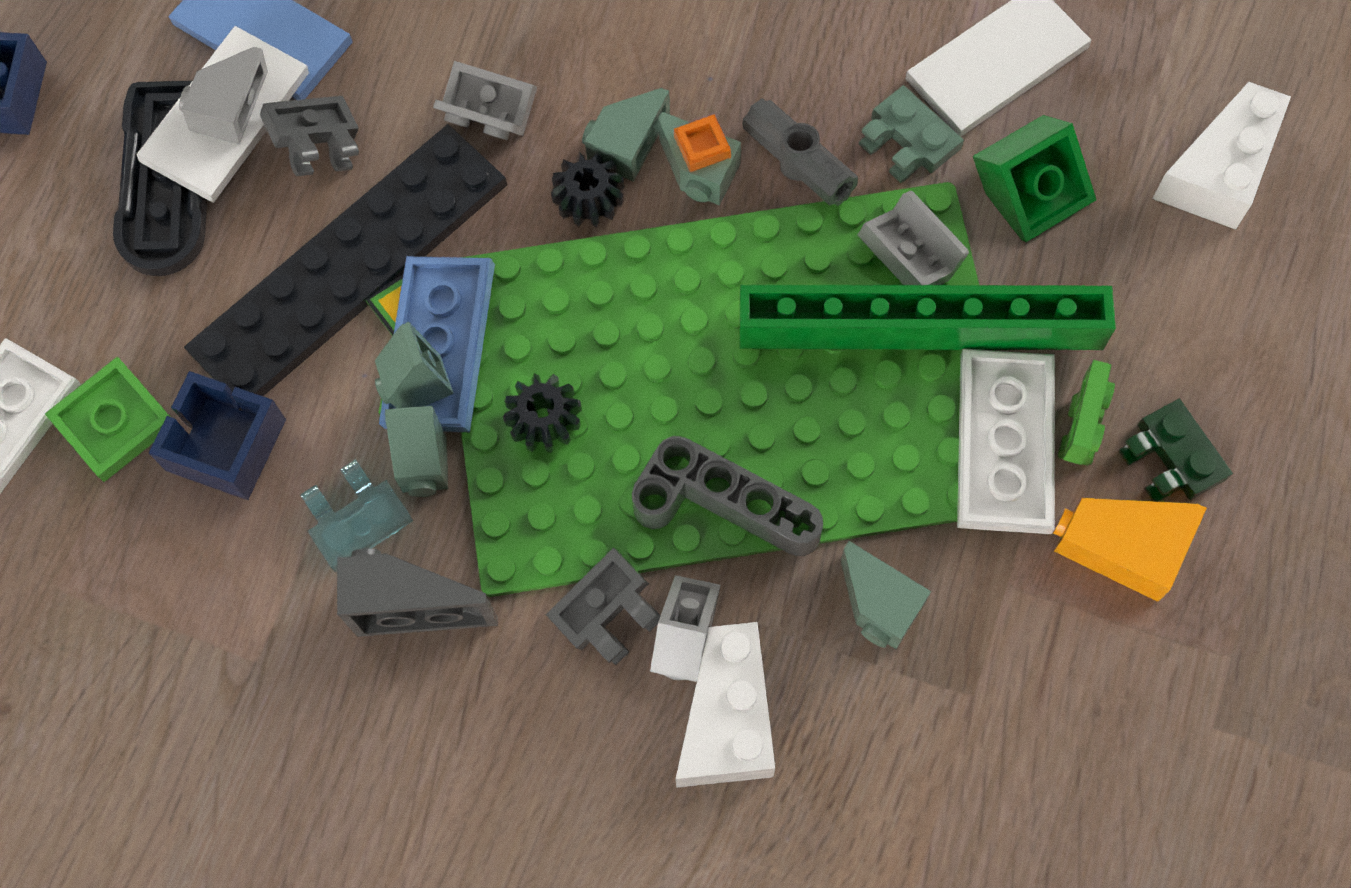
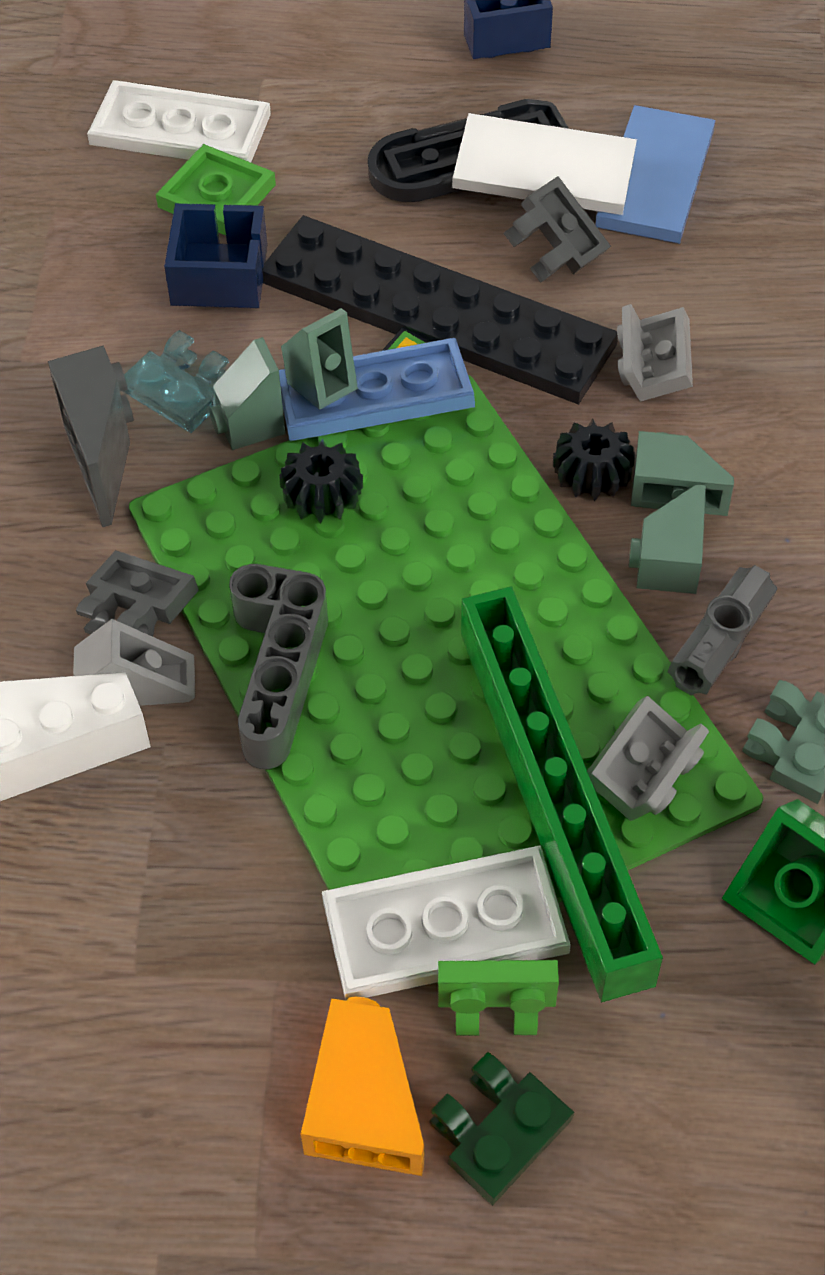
camera: 70 degrees right, 15 degrees down
(225, 95) = (553, 146): light grey slope -> none
(702, 143) = (680, 525): orange tile -> none
(881, 597) = (214, 840): sand green slope -> none

